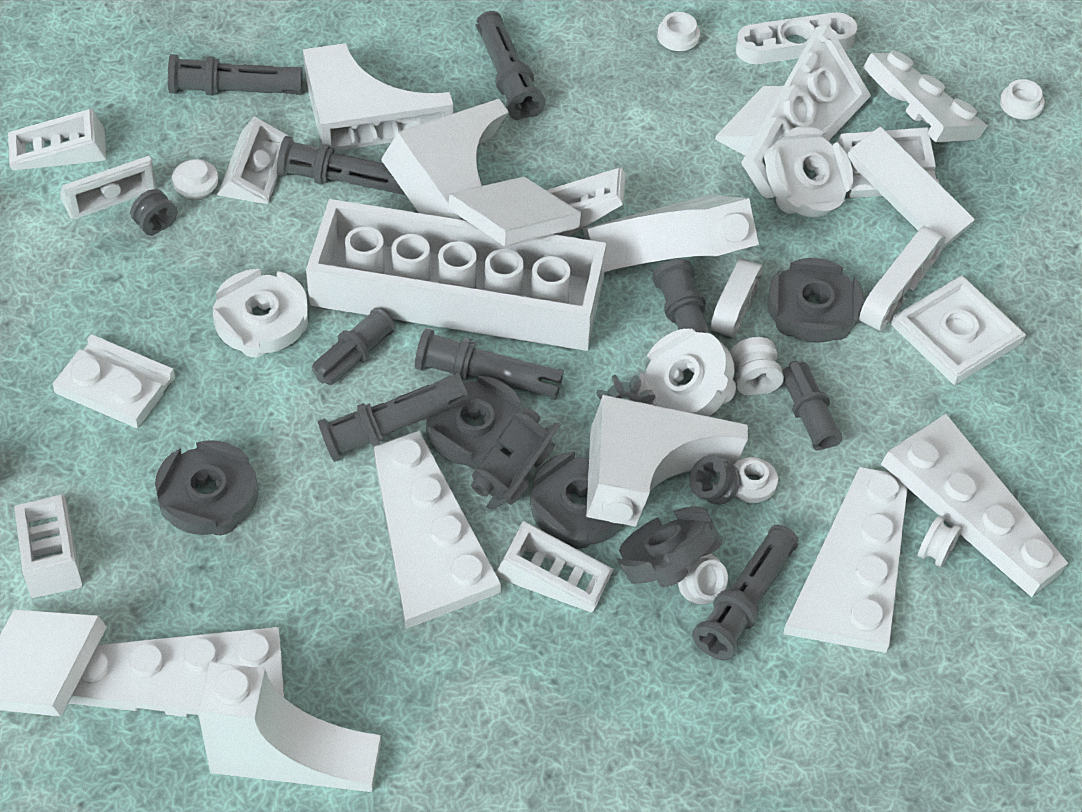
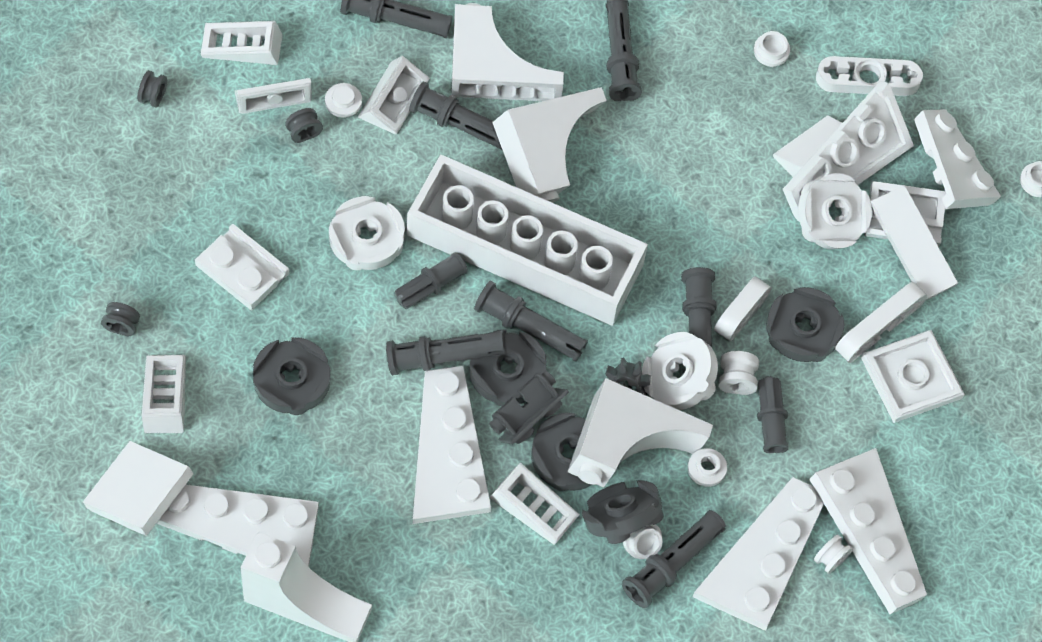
camera: 10 degrees right, 10 degrees up
(514, 211) = (583, 199): white tile -> none
(590, 197) = (622, 197): white slope -> none
(684, 229) = (717, 241): white arch -> none
(702, 474) = (667, 457): dark grey bush -> none

